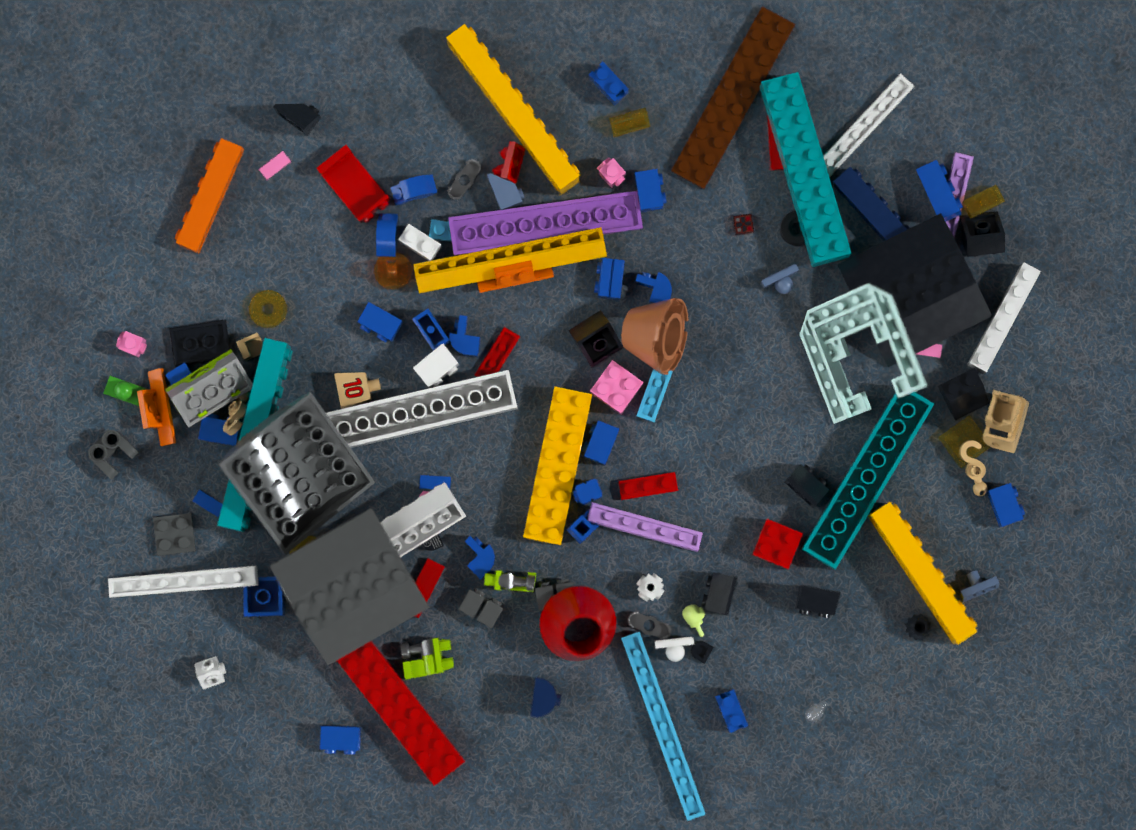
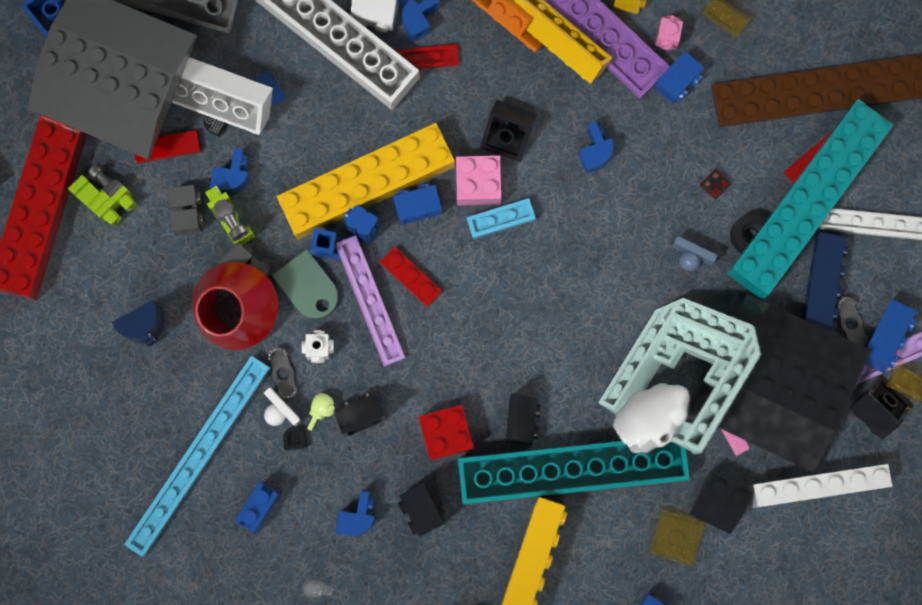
camera: 50 degrees right, 5 degrees down
(598, 562) = (306, 285): none -> sand green tile
(610, 279) = (572, 103): blue brick -> none
(657, 333) = (555, 177): nougat cone -> none
(793, 649) = (356, 524): none -> blue brick
(875, 397) = (652, 417): none -> white piece
(921, 212) = (847, 309): none -> flat silver piece
(974, 468) = (658, 566): tan piece -> none
(1007, 415) = (733, 556): tan piece -> none

